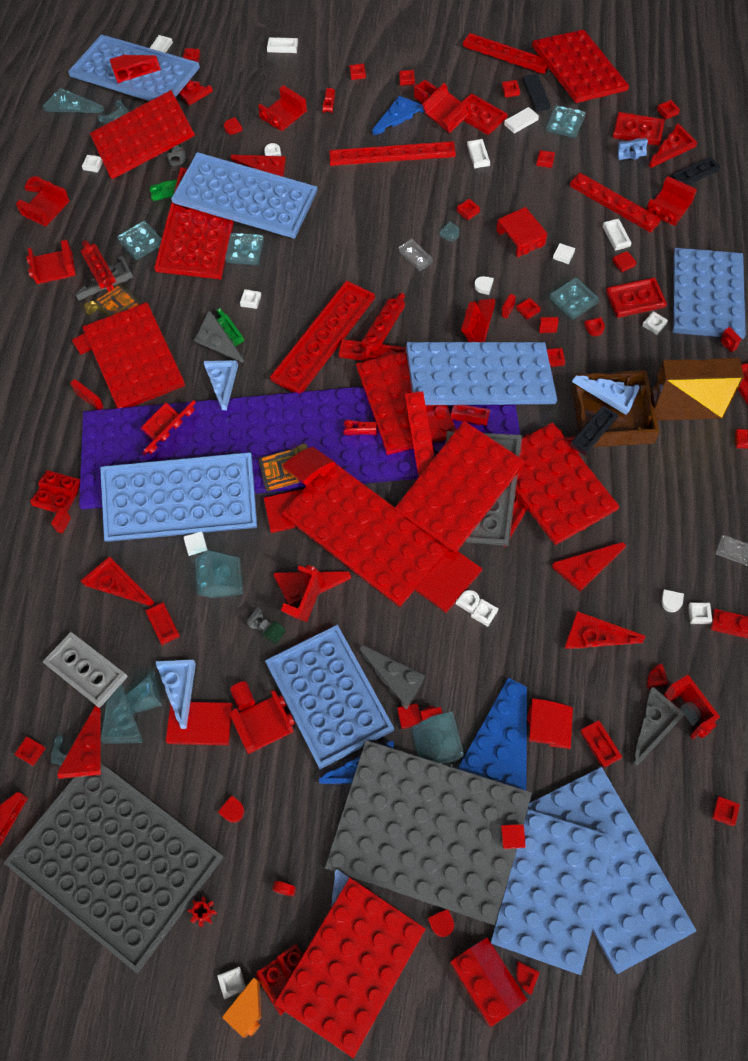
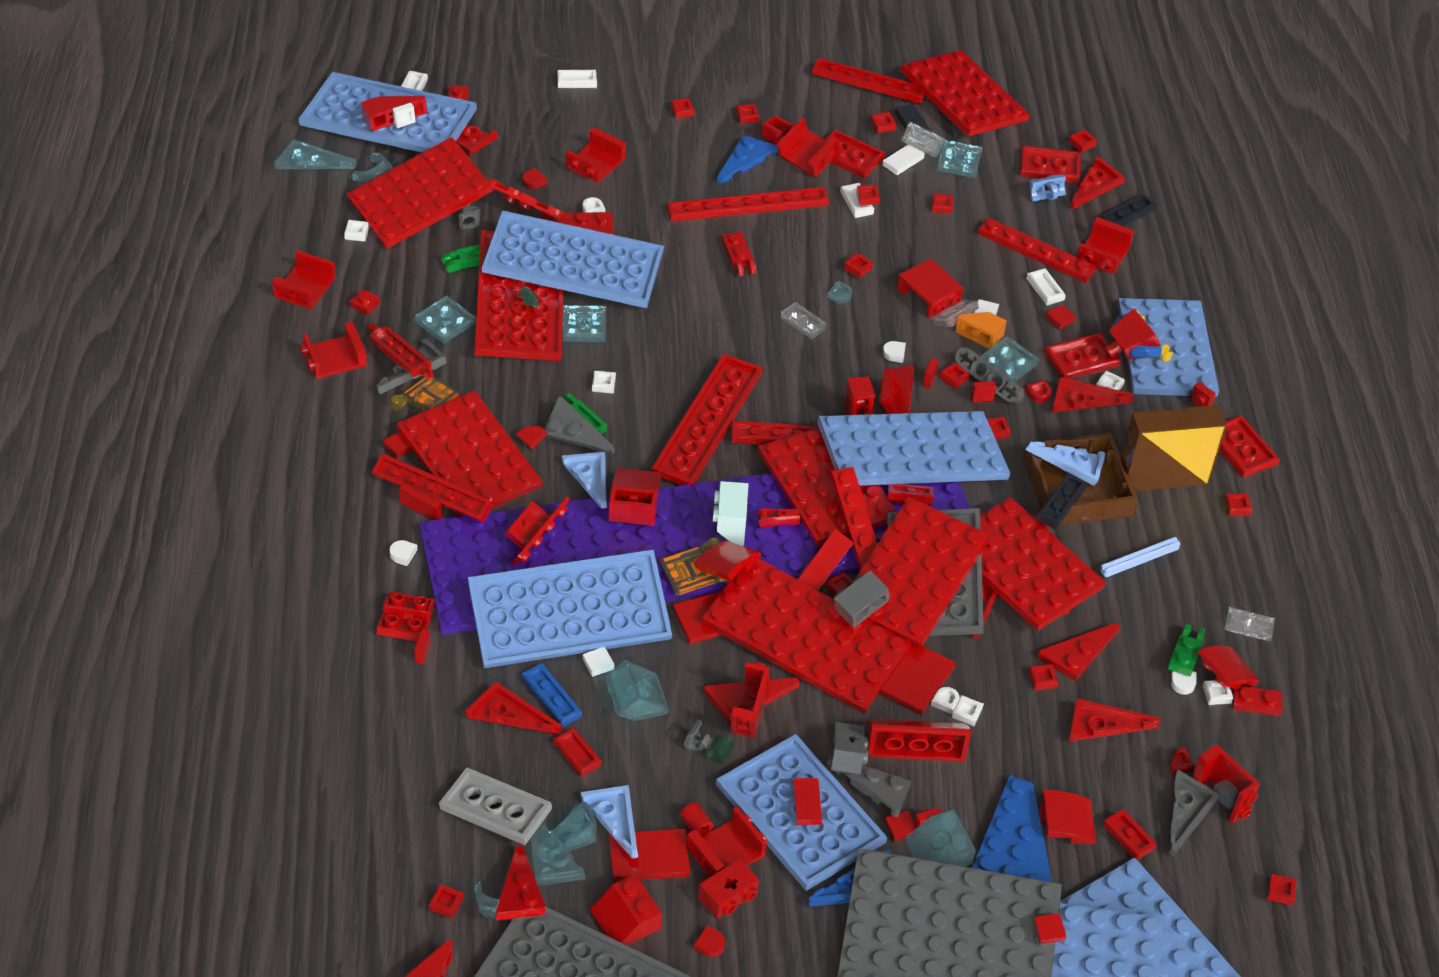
camera: 15 degrees left, 15 degrees down
(33, 185) = (284, 259): red tile -> none
(66, 435) = (402, 552): none -> white tile
(85, 222) = (365, 302): none -> red plate
(97, 384) = (447, 493): none -> red plate
(140, 70) = (404, 115): none -> white tile
(153, 570) = (551, 695): none -> blue tile
(168, 777) = (627, 911): none -> red slope
(184, 342) = (532, 435): none -> red tile
(204, 226) = (529, 297): none -> clear green plant
(220, 145) = (525, 201): none -> red wing
(248, 401) = (634, 496): none -> red slope
(260, 753) = (728, 889): none -> red brick
(319, 423) = (731, 511): none -> light aqua slope
(328, 103) = (653, 143): red bar -> none
(333, 690) = (807, 801): none -> red tile
(376, 194) = (738, 252): none -> red hinge
(376, 643) = (849, 748): none -> dark grey brick
(382, 325) = (780, 401): red plate -> none
(390, 470) = (826, 560): none -> red tile
(400, 489) = (838, 582): none -> red tile
(409, 509) = (861, 598): none -> dark grey brick
(436, 638) = (918, 740): none -> red slope
(444, 326) = (859, 396): none -> red brick
(486, 149) = (868, 194): none -> red plate
(538, 104) = (922, 139): none -> clear plate
(543, 252) = (949, 316): none -> clear plate
(553, 586) = (1043, 677): none -> red tile
(554, 312) = (989, 375): none -> dark grey beam
(557, 268) = (981, 328): none -> orange slope
(628, 332) = (1082, 395): none -> red wing
(653, 482) = (1139, 557): none -> light blue axle
(678, 574) = (1186, 651): none -> green hinge
(681, 285) = (1135, 338): none -> red torso
(711, 592) = (1228, 667): none -> red slope

